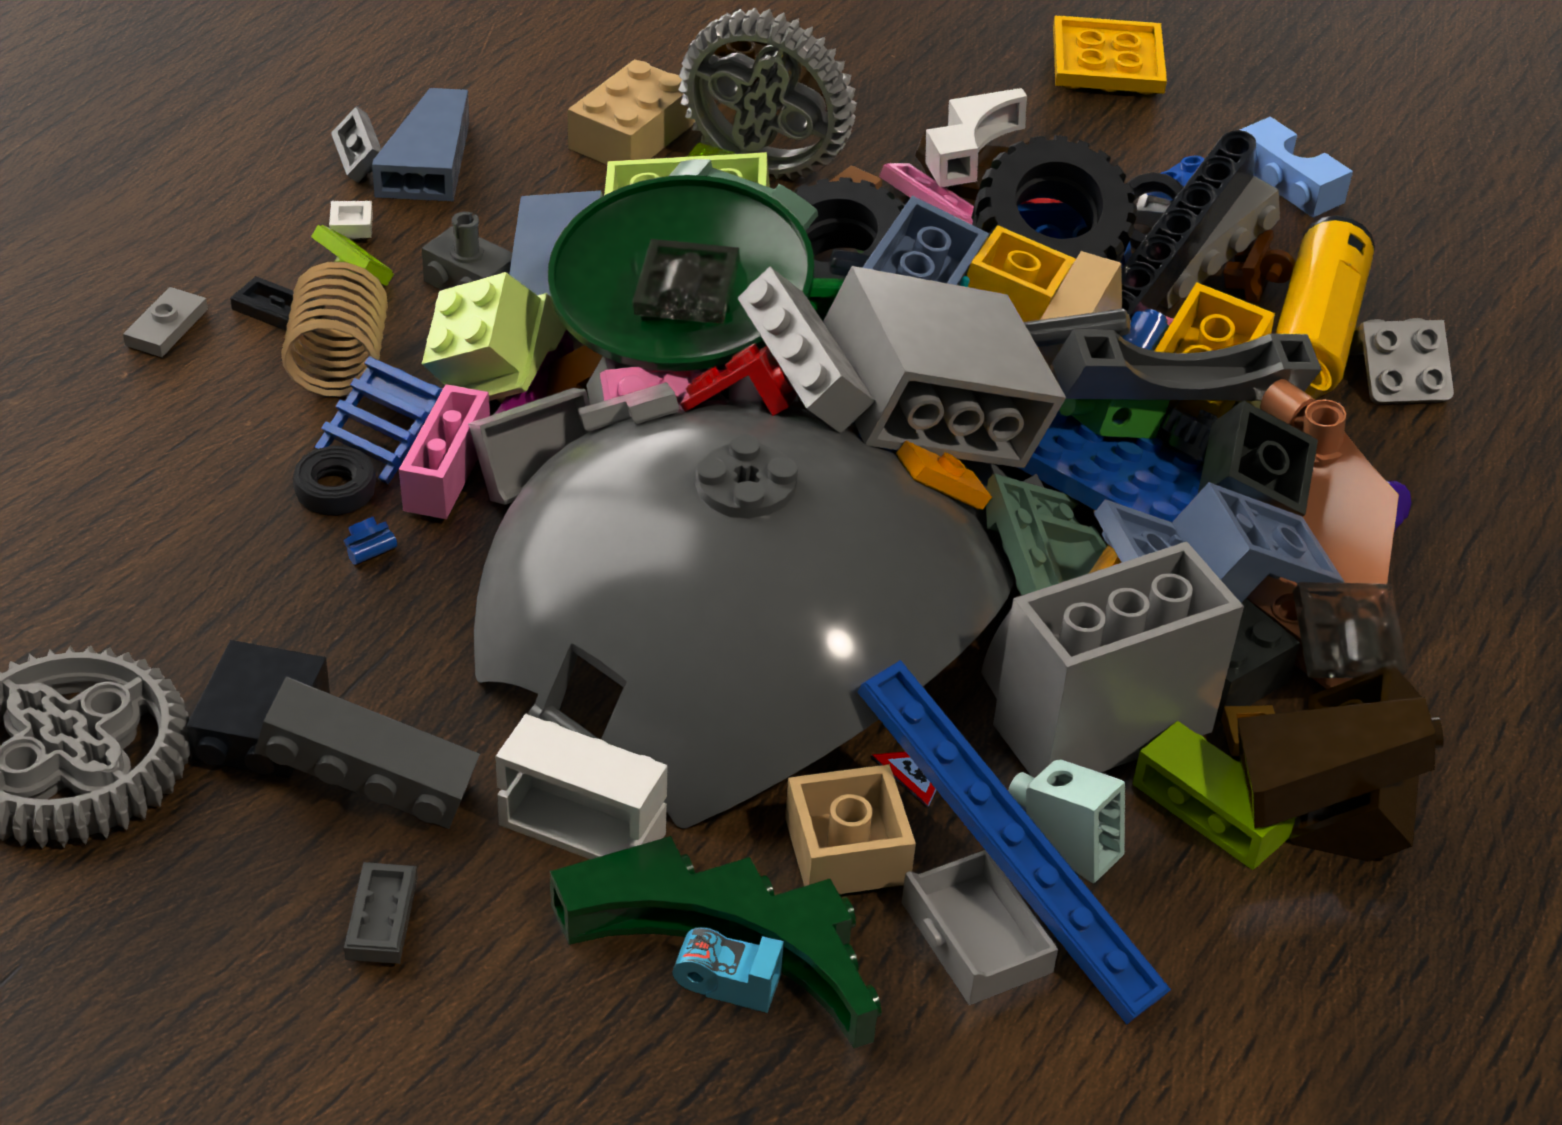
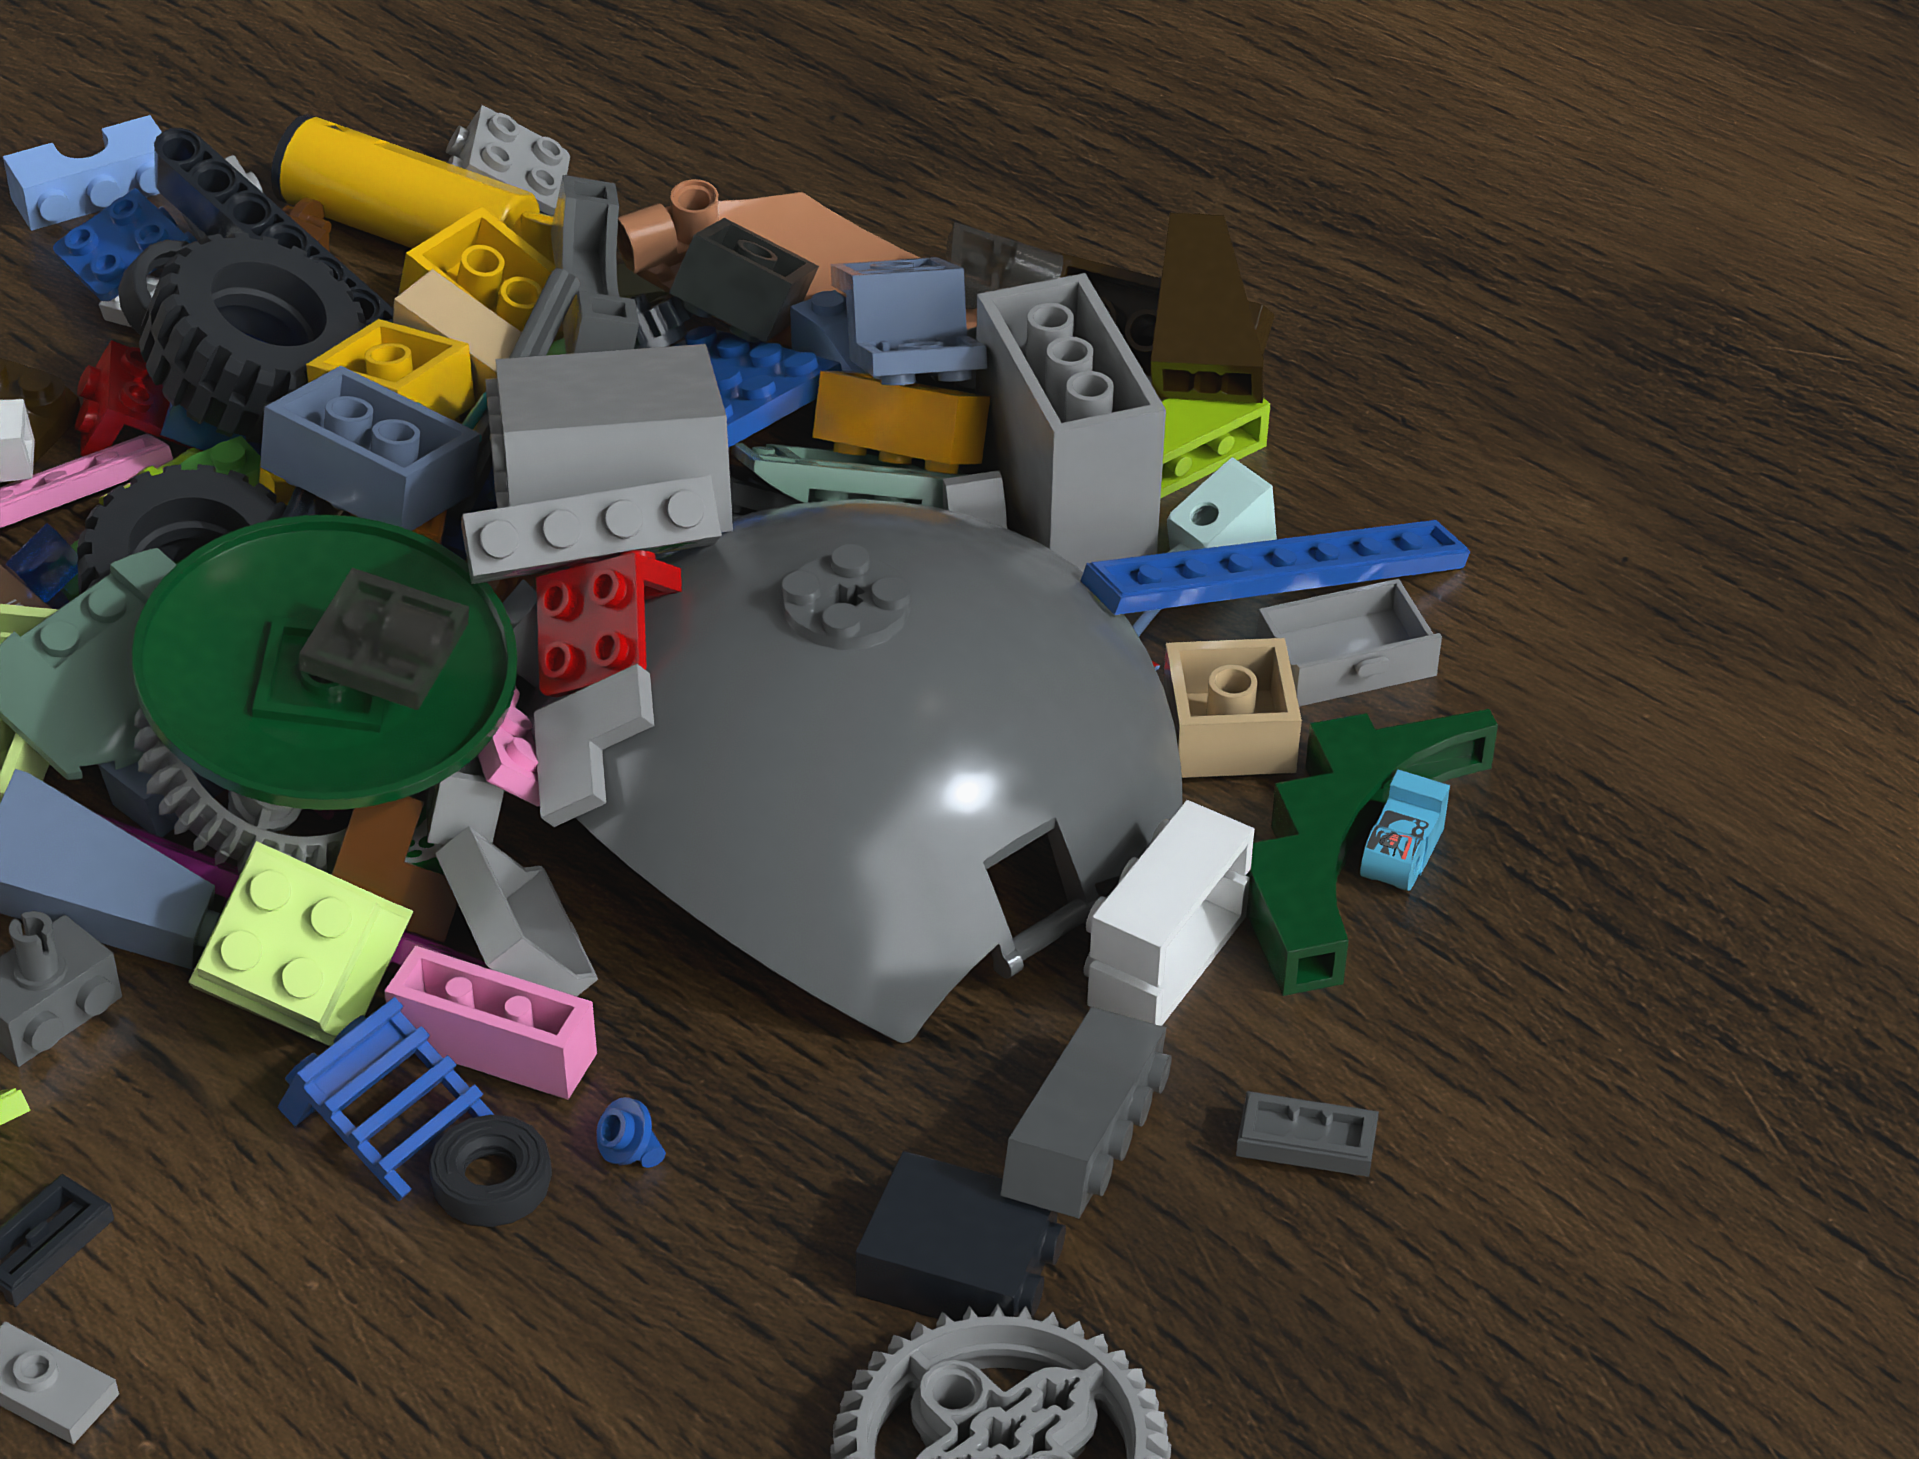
camera: 80 degrees left, 0 degrees up
(303, 323) = (247, 1131): tan piece -> none
(943, 474) = (759, 495): light orange plate -> none

